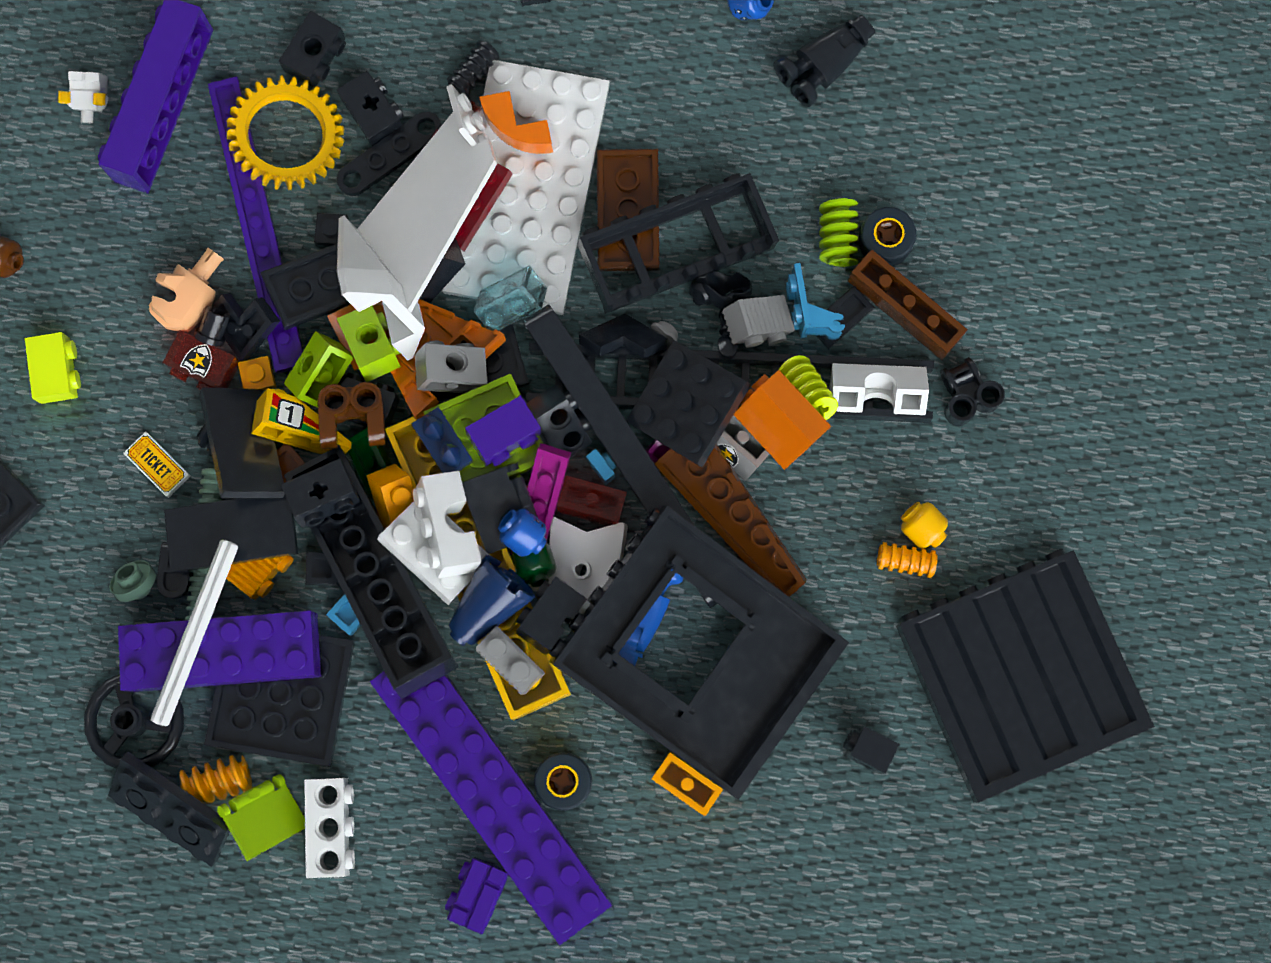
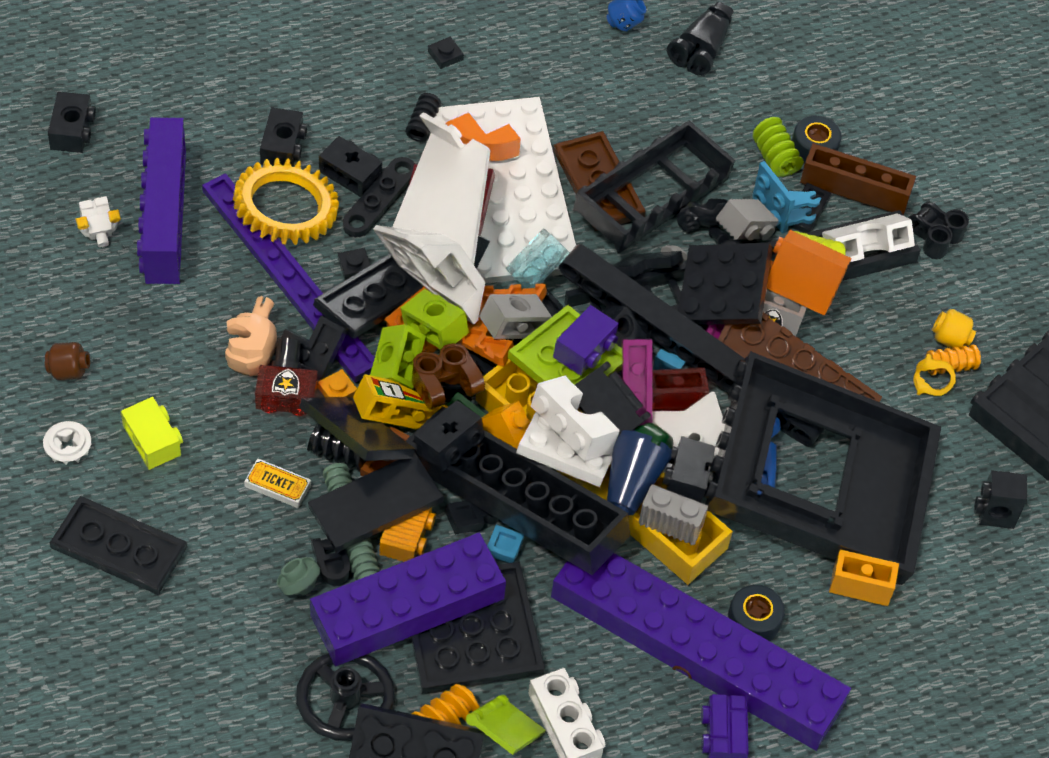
camera: 30 degrees left, 25 degrees down
(194, 633) = (386, 576): white axle -> none
(442, 442) = (535, 363): dark blue tile -> none
(522, 532) = (637, 411): blue head -> none
(875, 563) = (931, 364): none -> yellow piece

